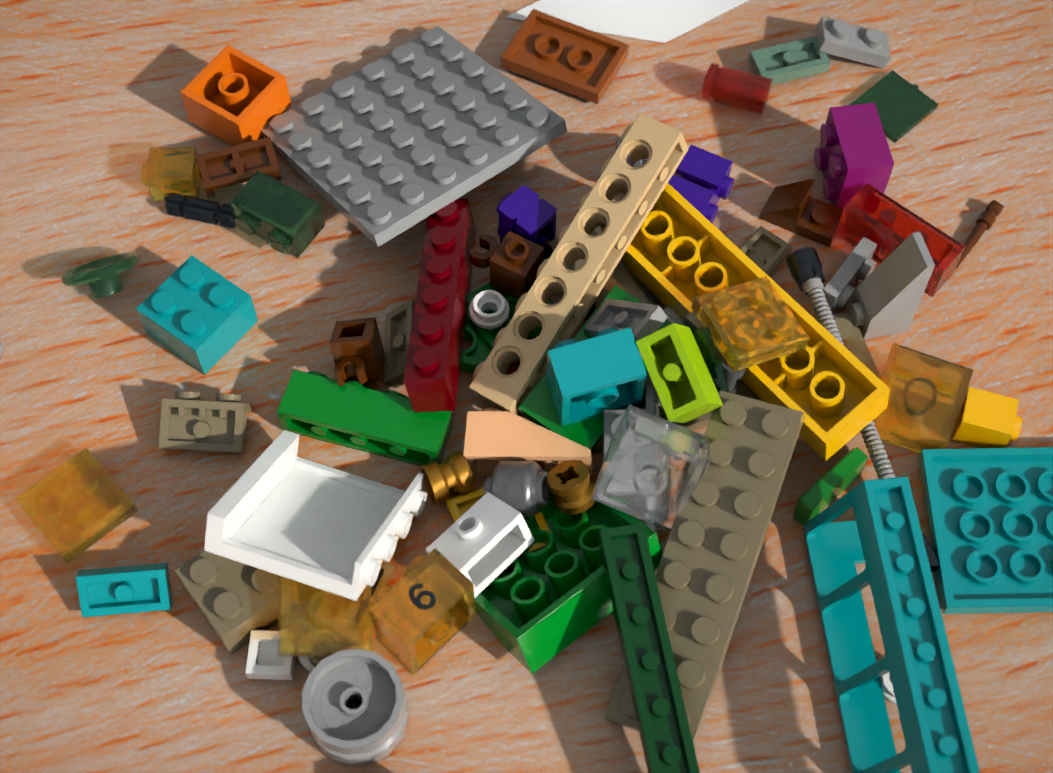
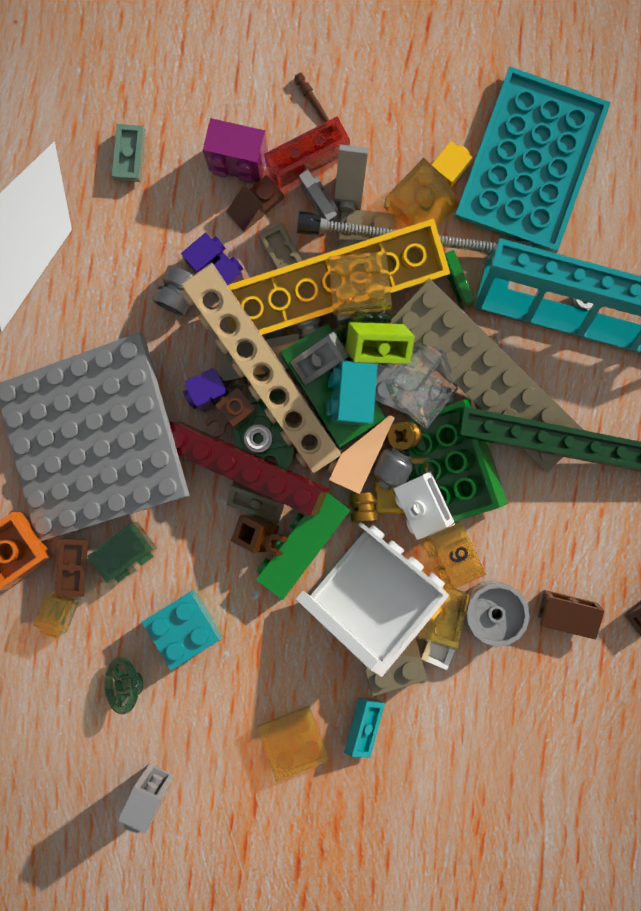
camera: 70 degrees left, 25 degrees up
(200, 210) = (91, 602): black axle -> none
(203, 425) = (264, 647): dark tan bracket -> none
(565, 56) = (59, 305): dark orange plate -> none
(736, 88) = (138, 199): clear red piece -> none
(853, 42) = (131, 102): light grey plate -> none
(898, 104) = (191, 100): clear green piece -> none

